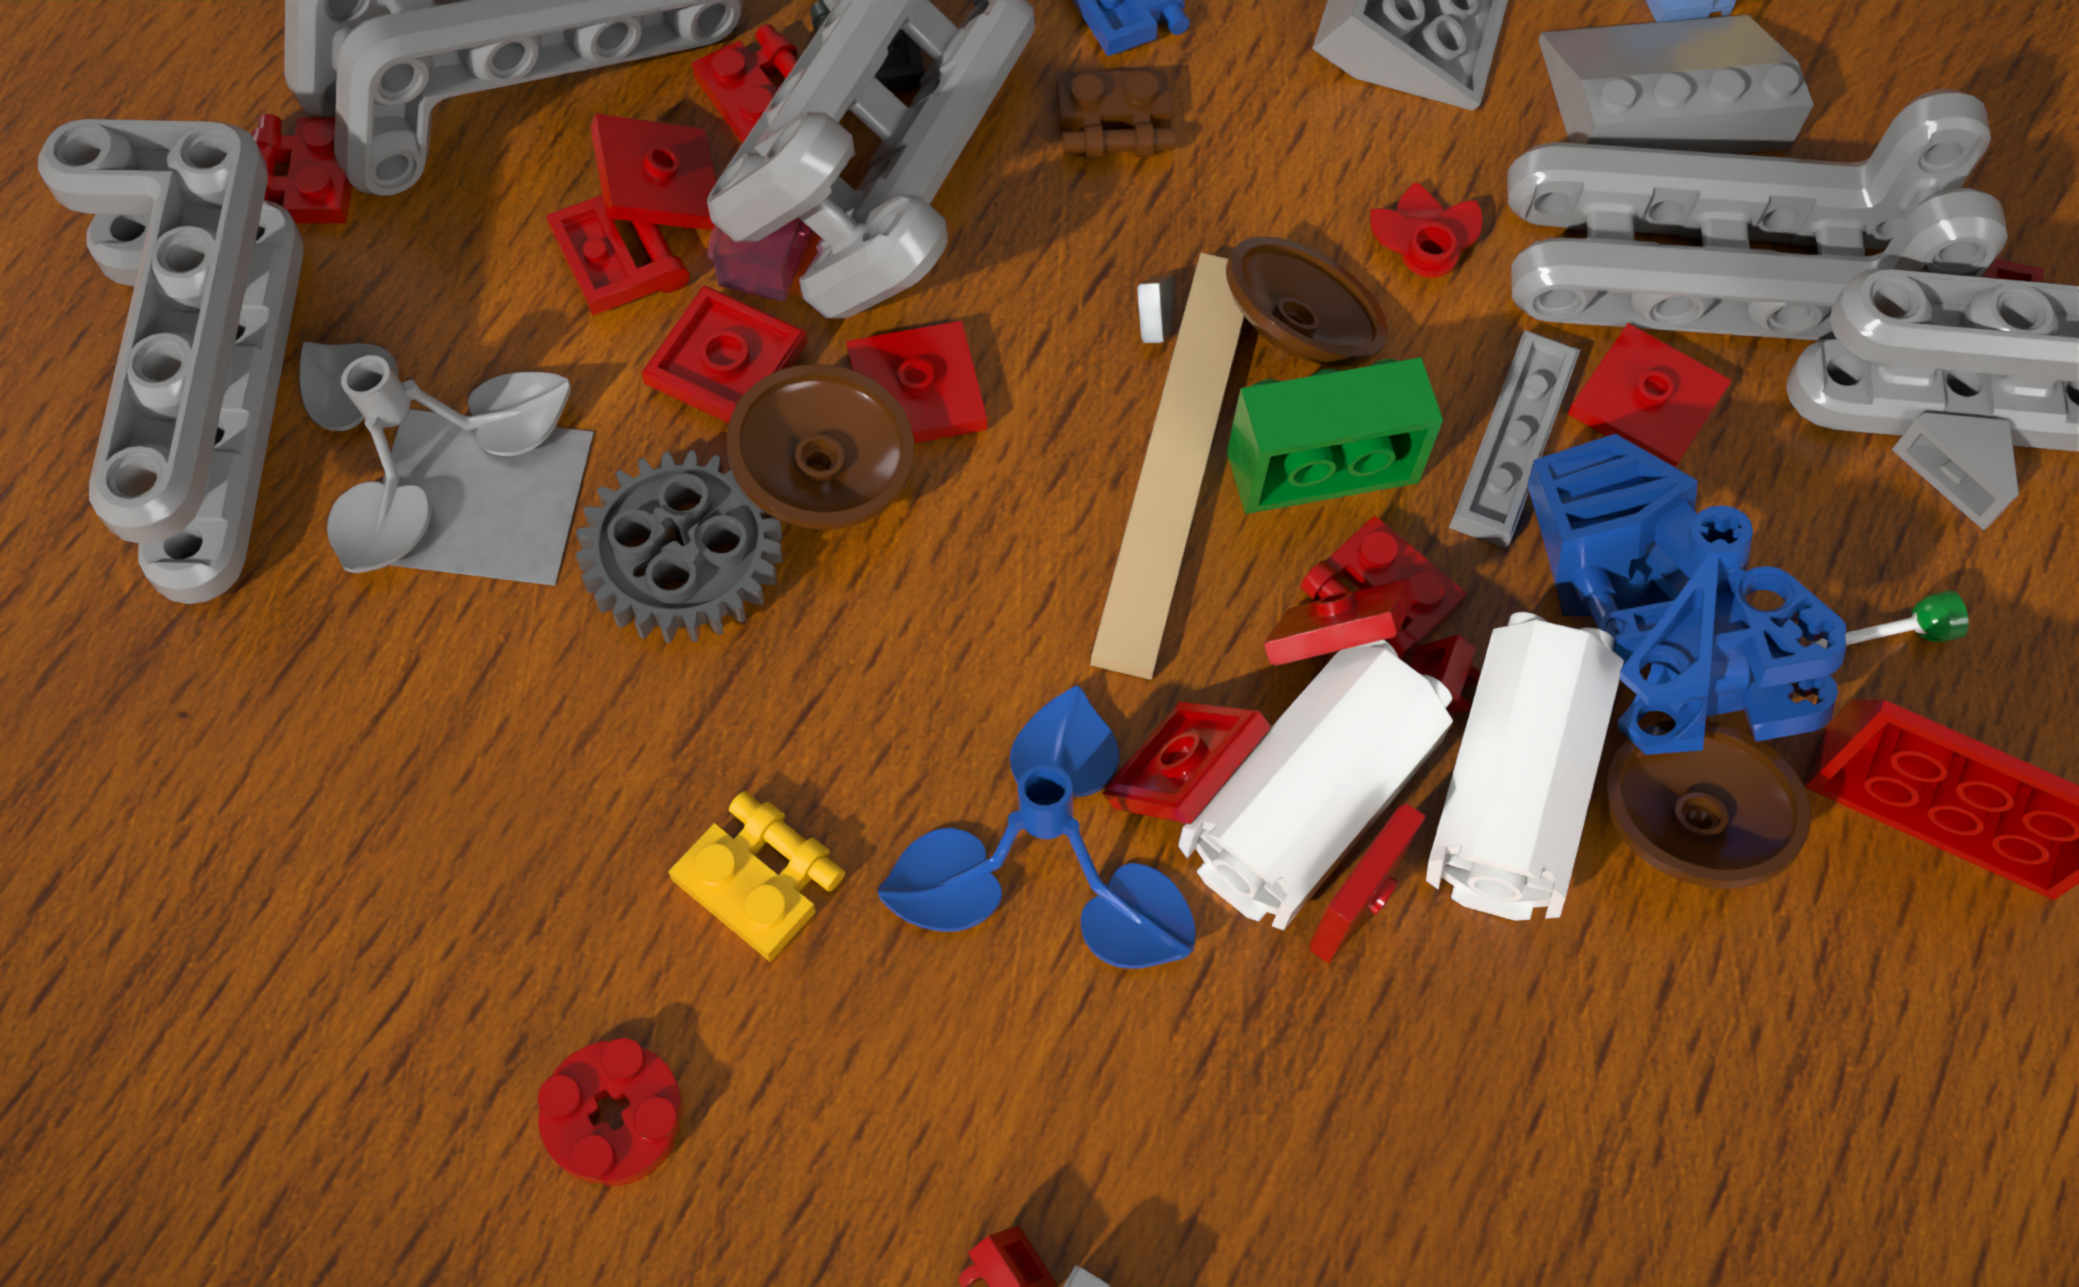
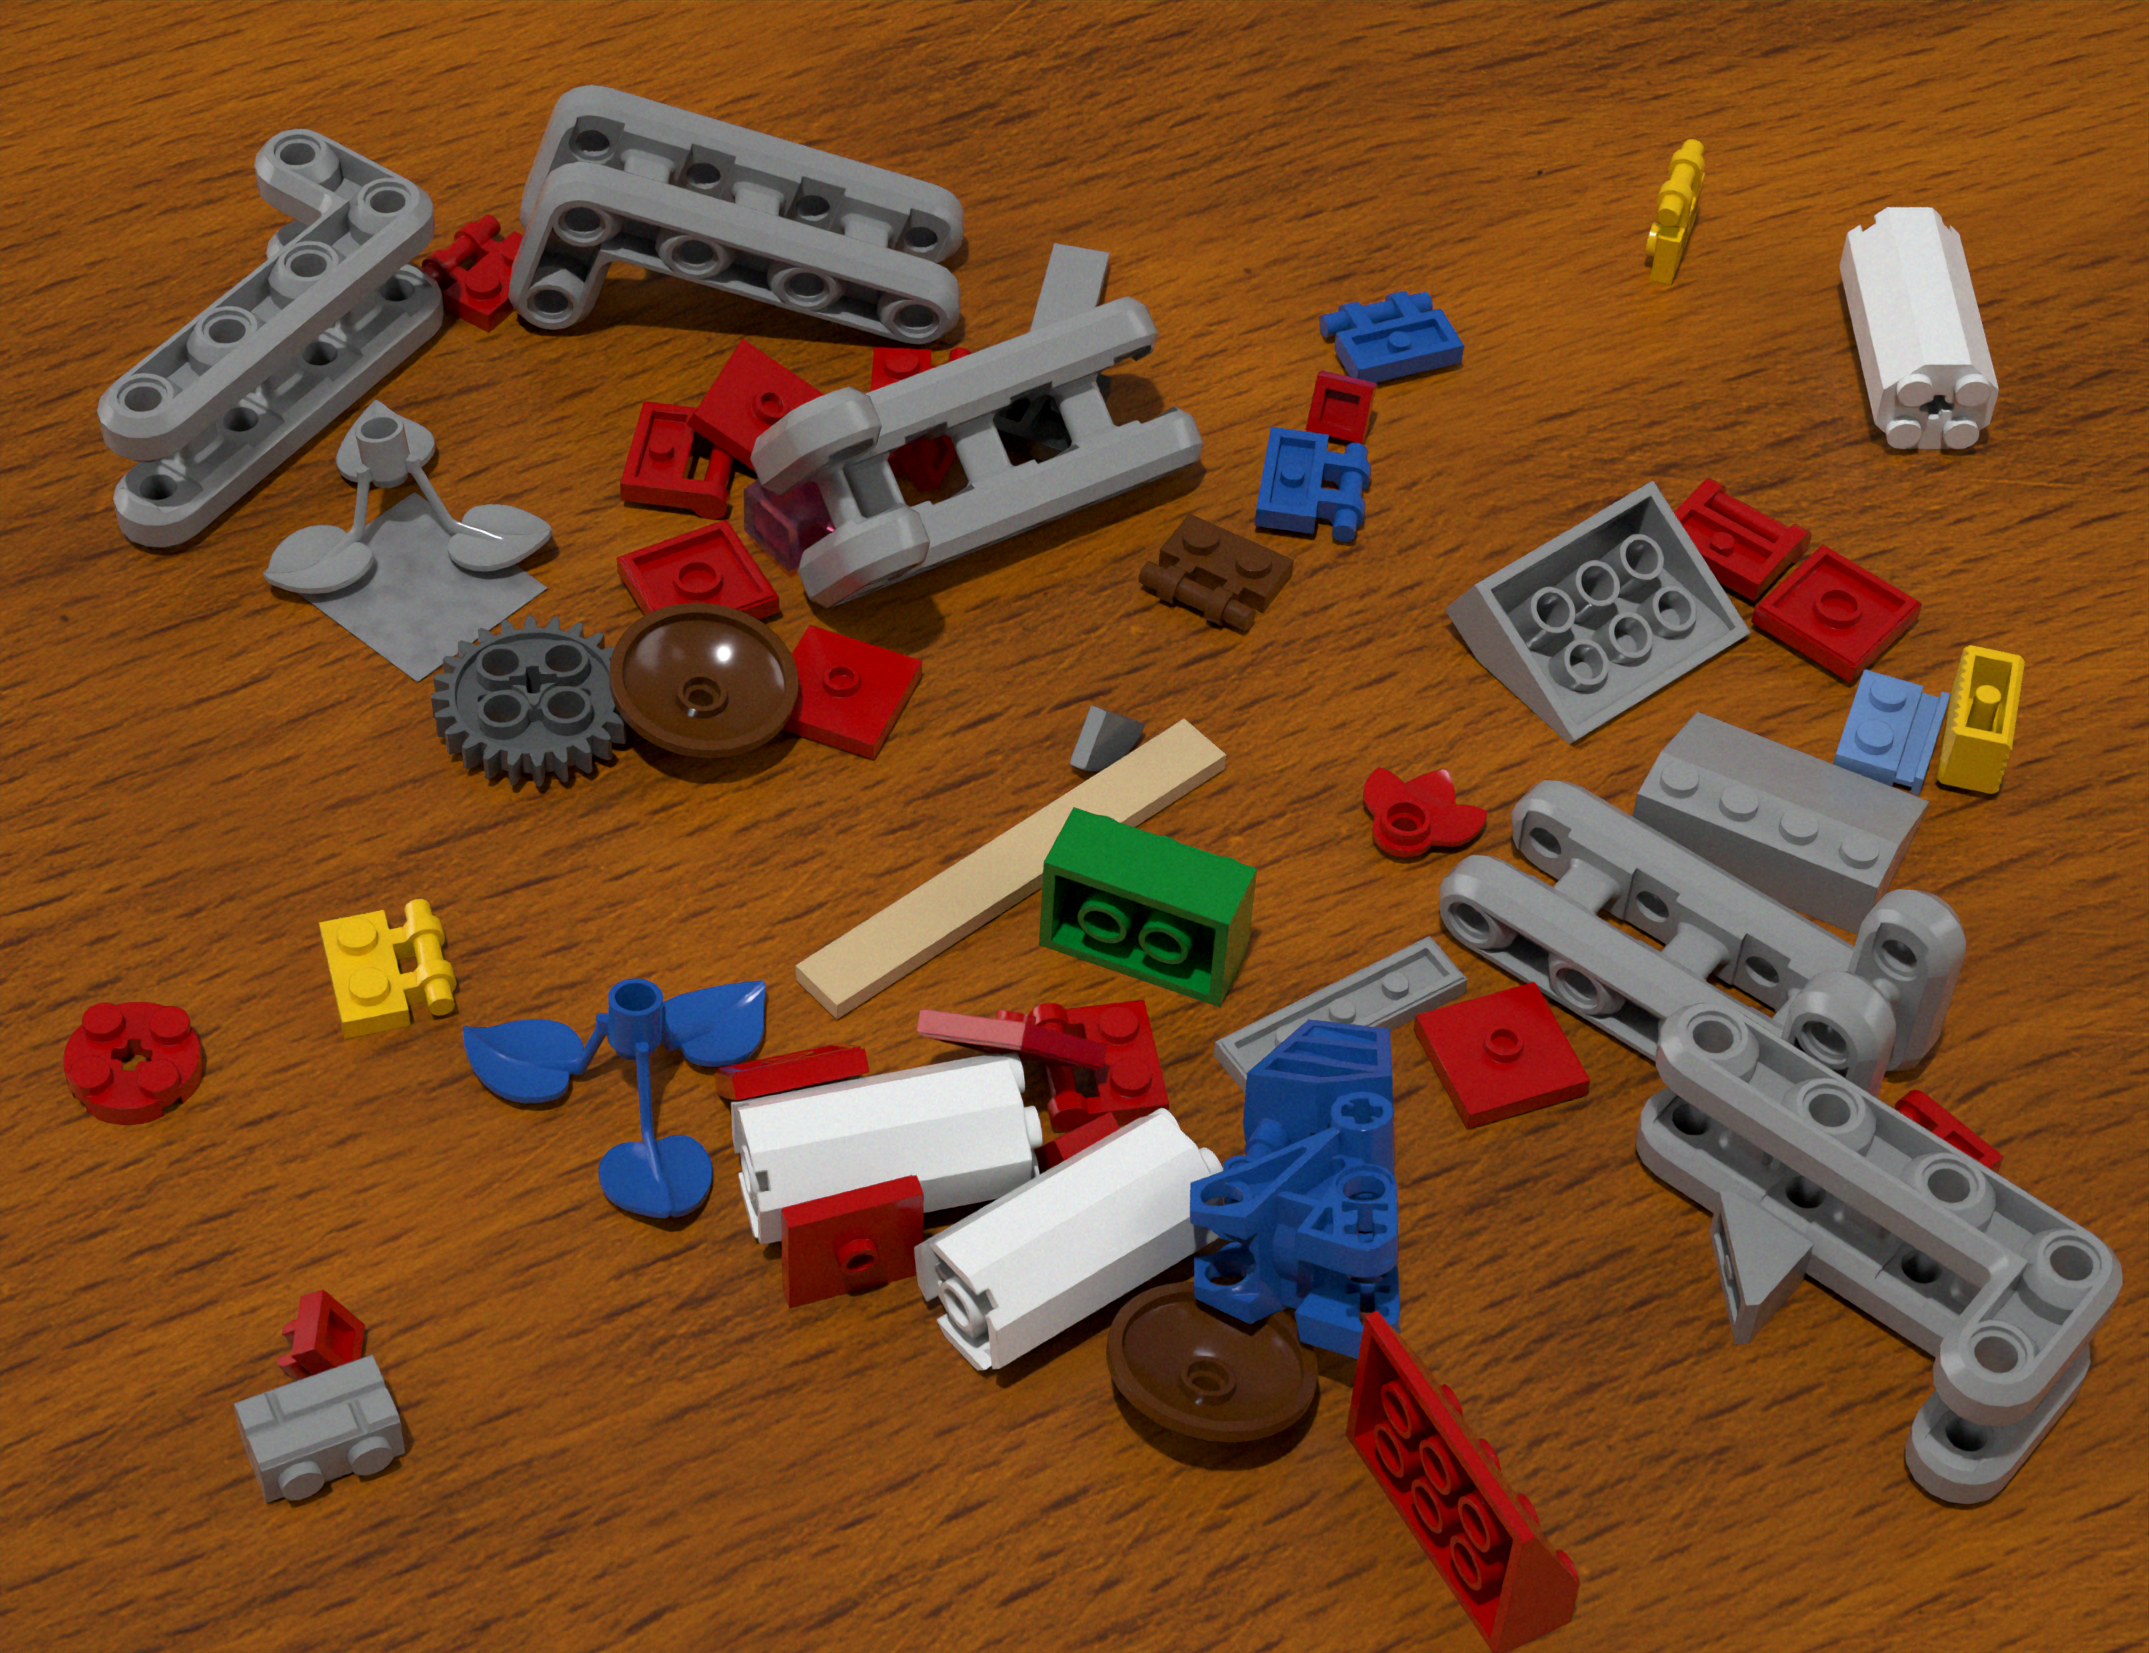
camera: 35 degrees right, 15 degrees down
(1305, 302) = (1230, 794): reddish brown dish -> none
(1934, 618) = (1595, 1370): green hinge -> none

